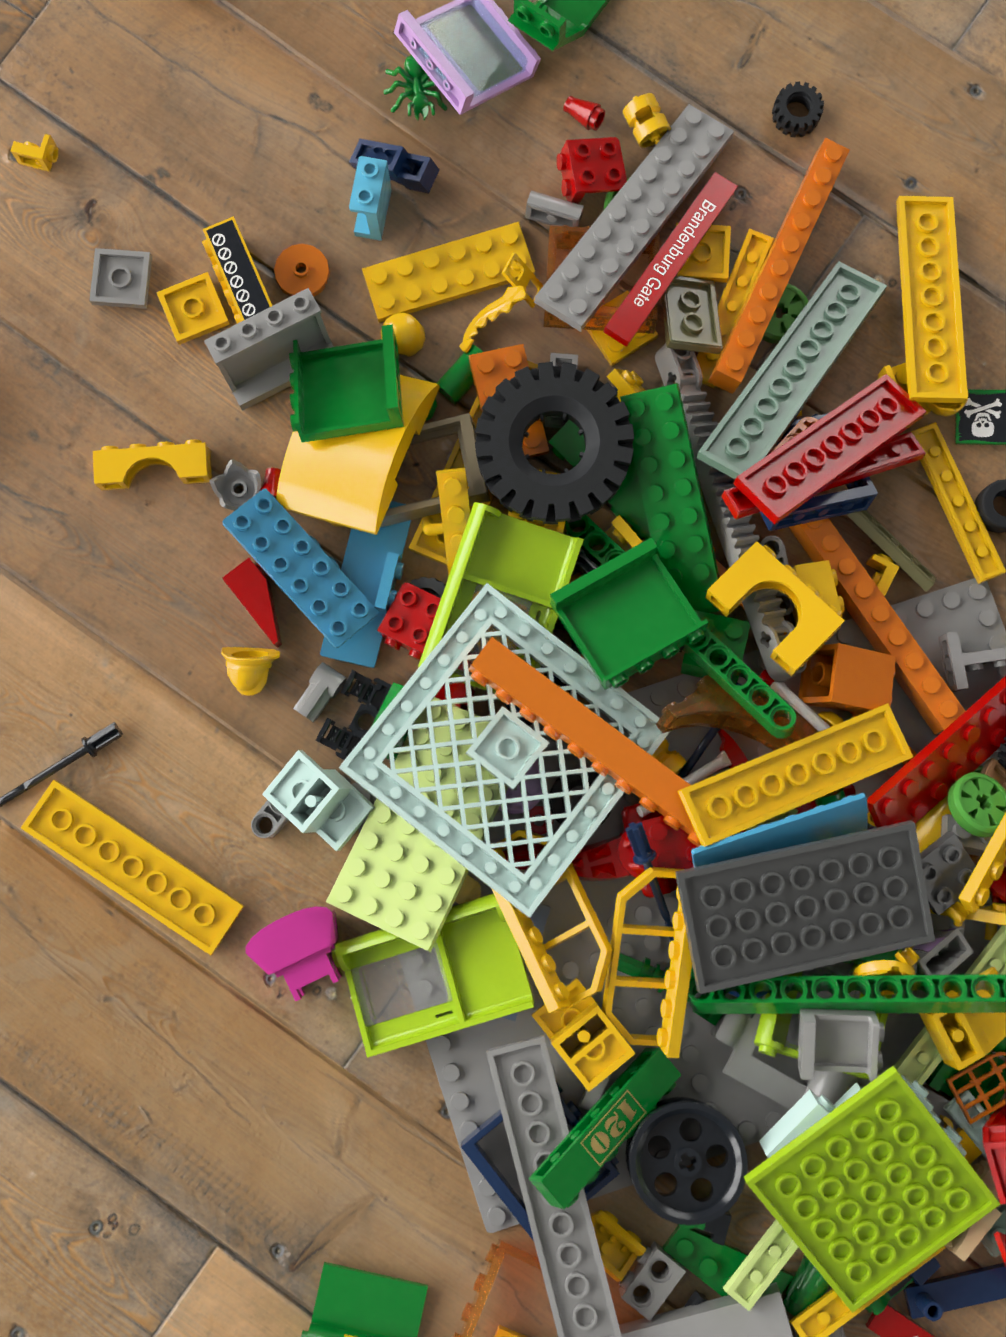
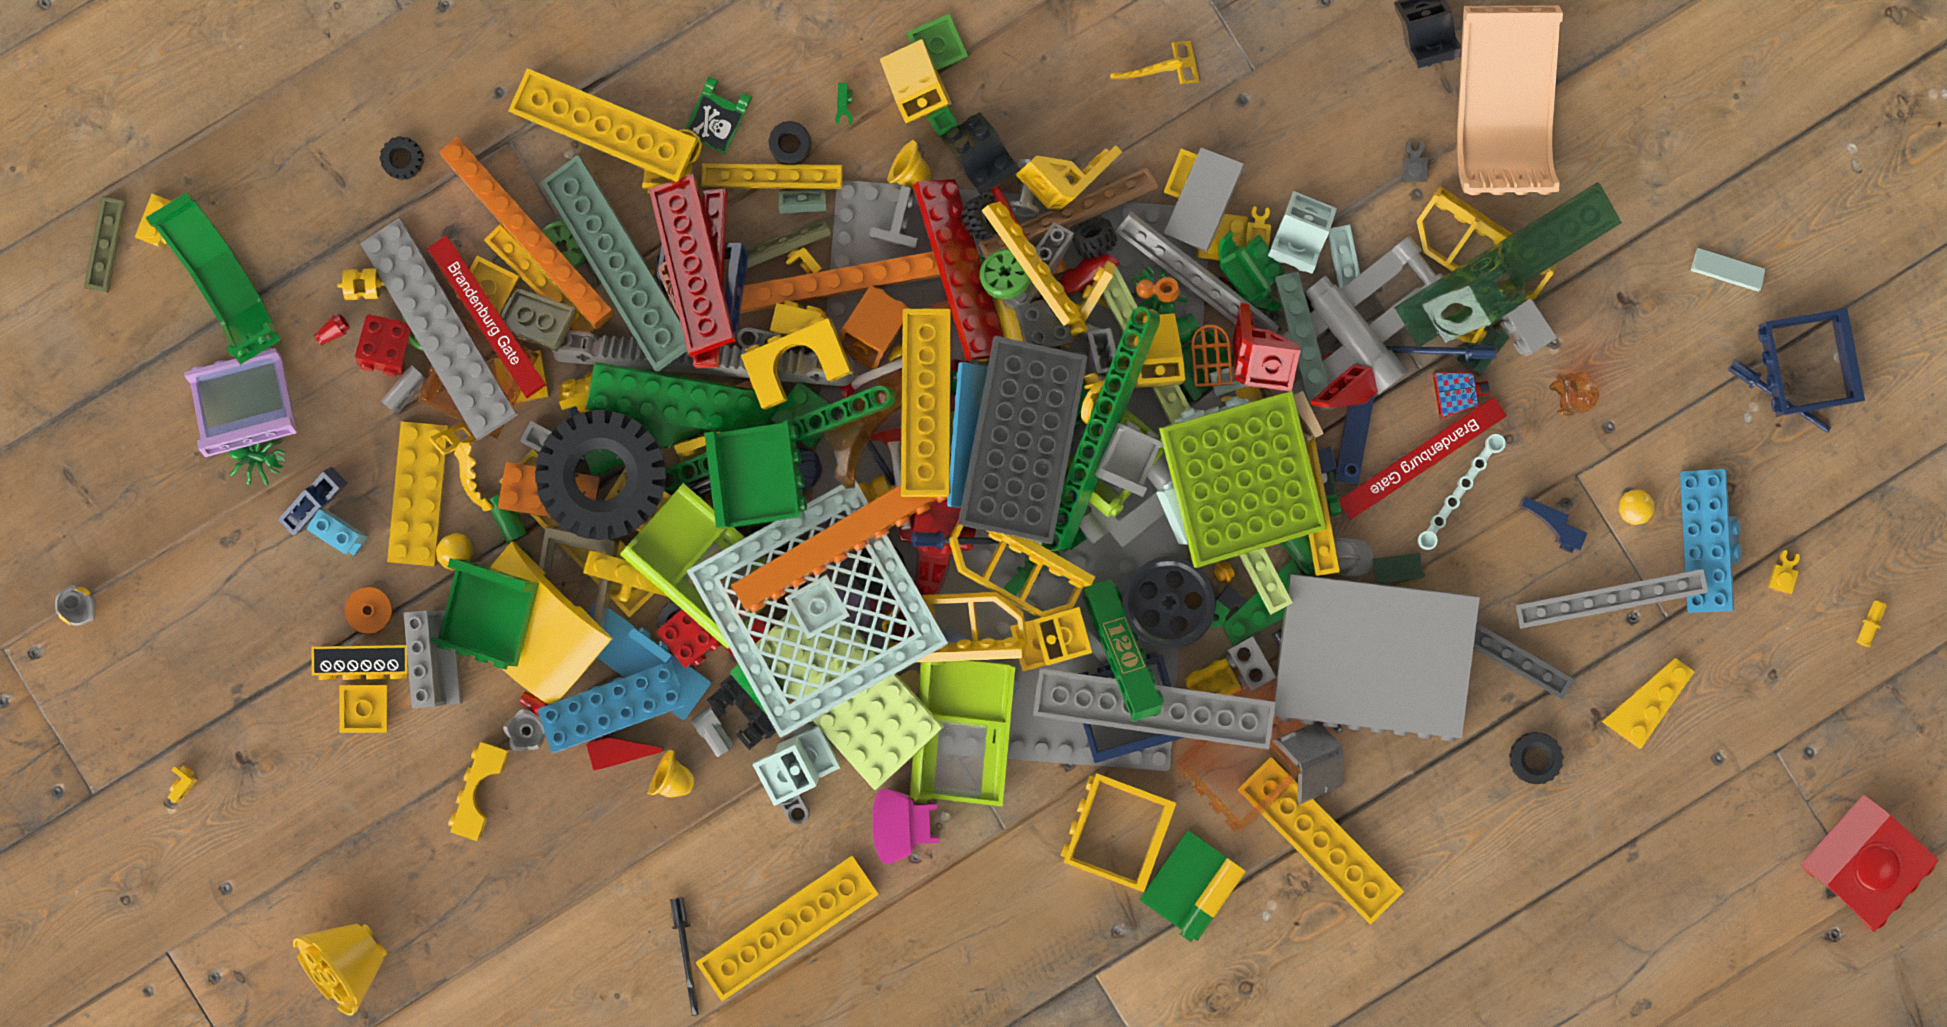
camera: 70 degrees left, 5 degrees up
(120, 278) = (314, 756): light grey plate -> none
(390, 1255) = (1153, 849): none -> yellow window
(658, 677) = (810, 467): none -> dark blue hair
(746, 1203) = (1223, 571): none -> light orange plate
(948, 551) = (802, 201): none -> sand green plate

